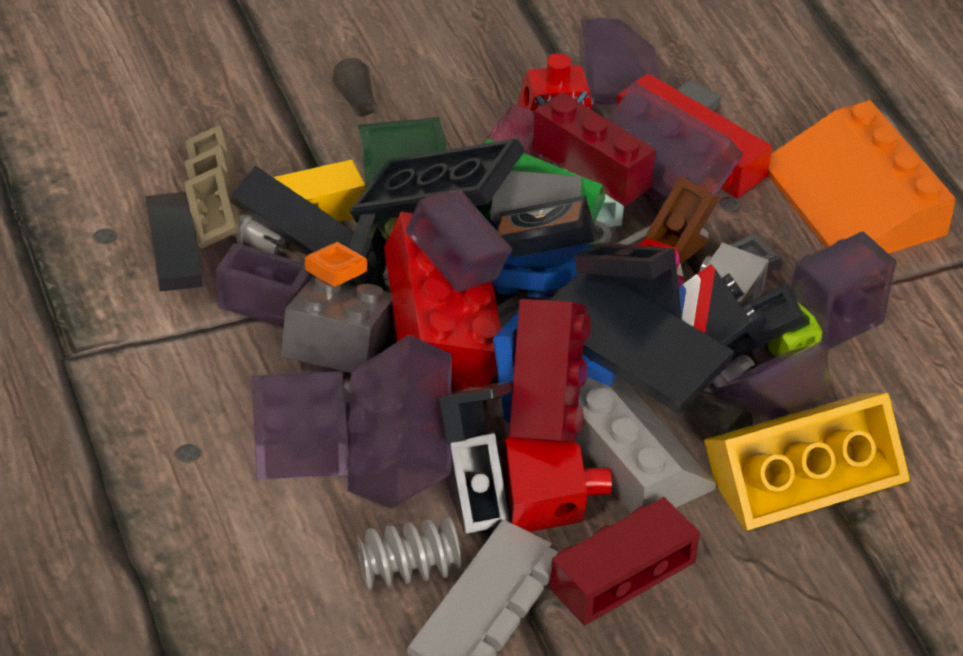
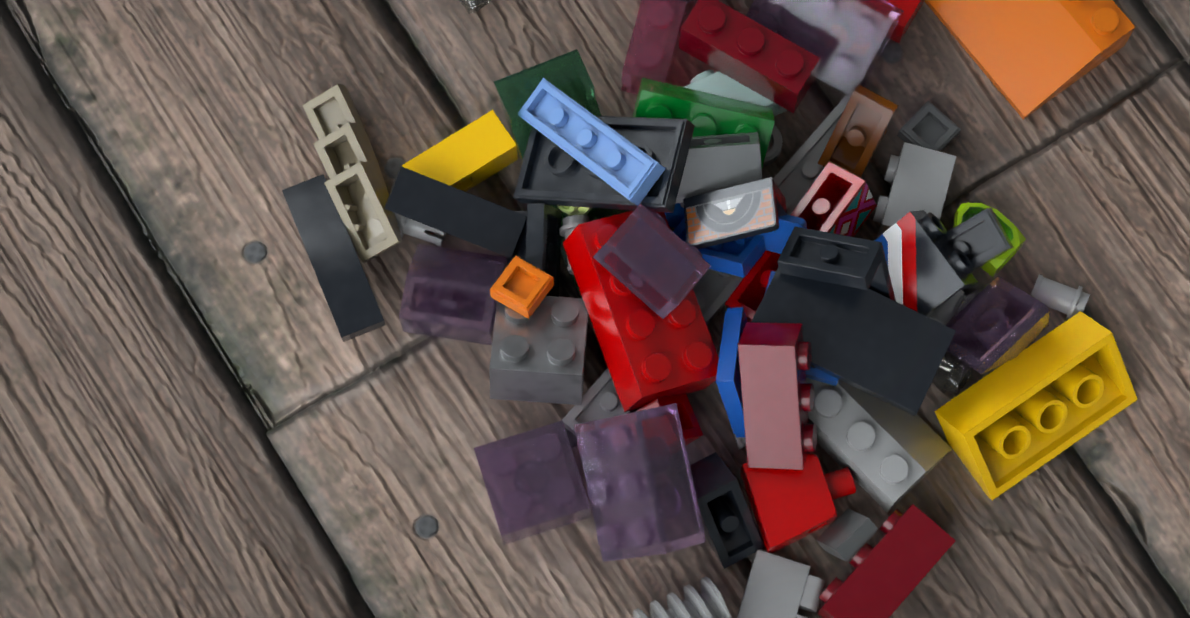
camera: 10 degrees left, 30 degrees up
(430, 160) = (591, 142): none -> medium blue tile
(464, 410) = (712, 455): black panel -> none
(594, 520) = (847, 535): none -> dark grey tile
(845, 287) = (1038, 179): brick -> none
(845, 385) = (1060, 296): none -> light grey pin

